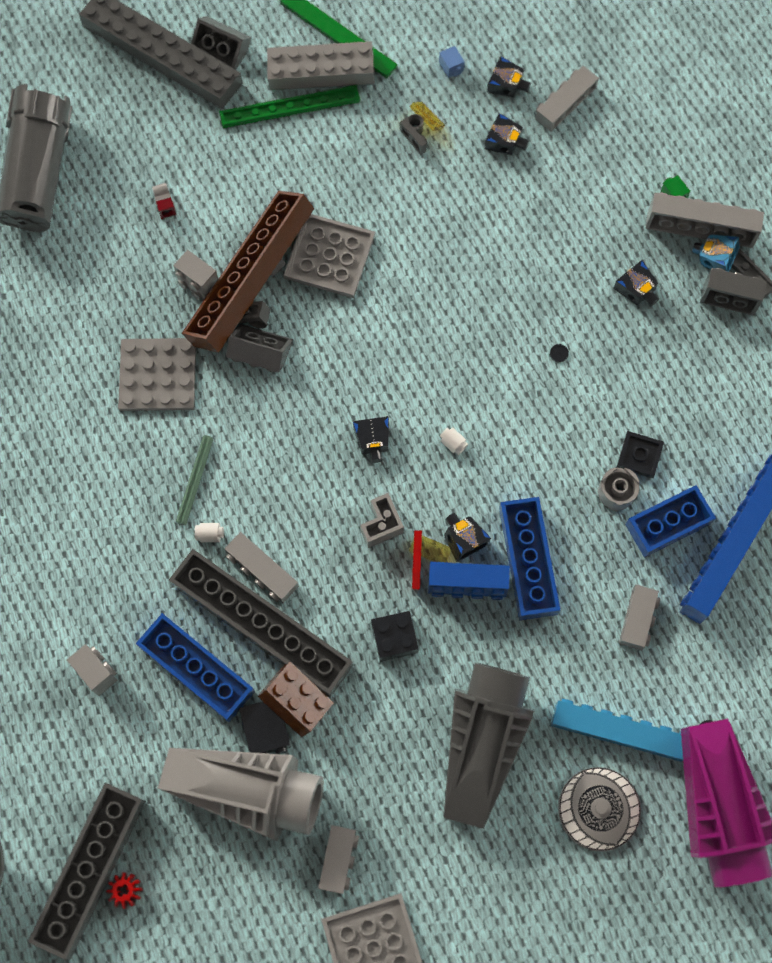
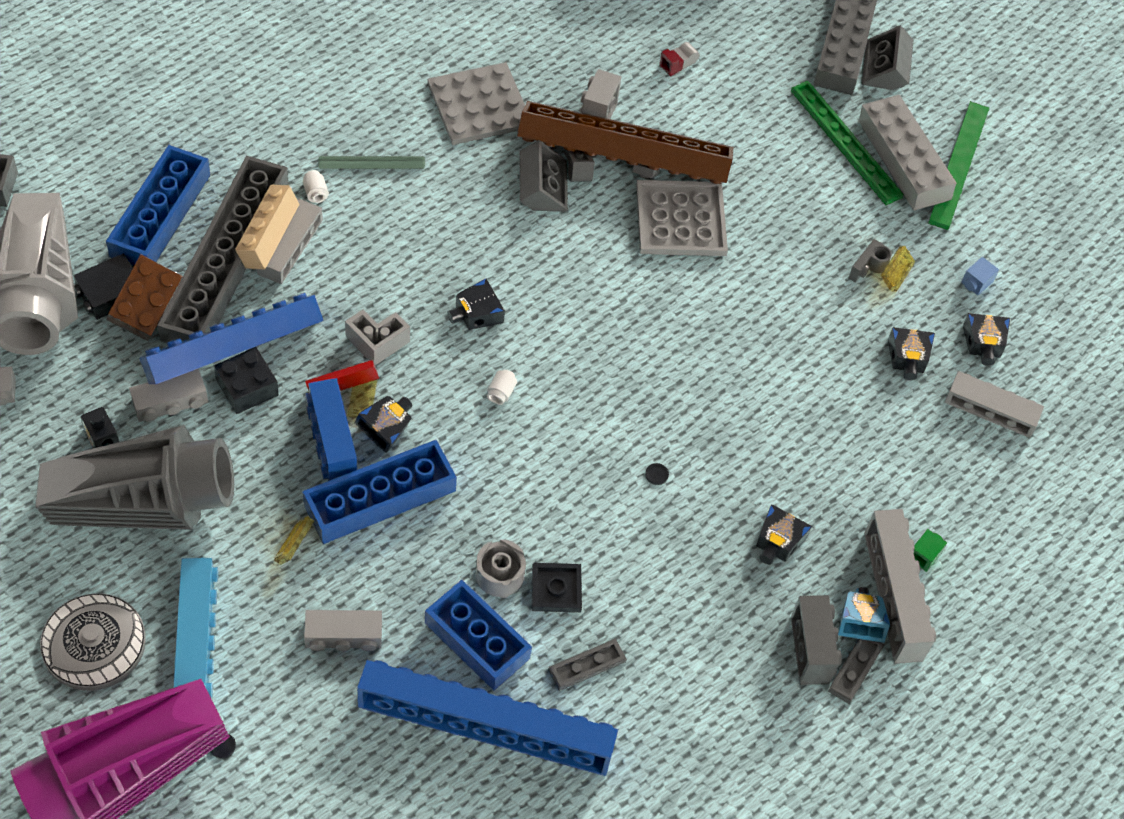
camera: 65 degrees right, 15 degrees down
(92, 670) = (132, 120): light grey brick -> none
(254, 579) = (267, 227): none -> tan brick
(360, 637) = (230, 339): none -> blue brick
(391, 702) = (169, 396): none -> light grey brick
(416, 764) = (98, 427): none -> black torso
(552, 635) = (293, 540): none -> clear yellow tile
(705, 453) = (587, 664): none -> dark grey tile

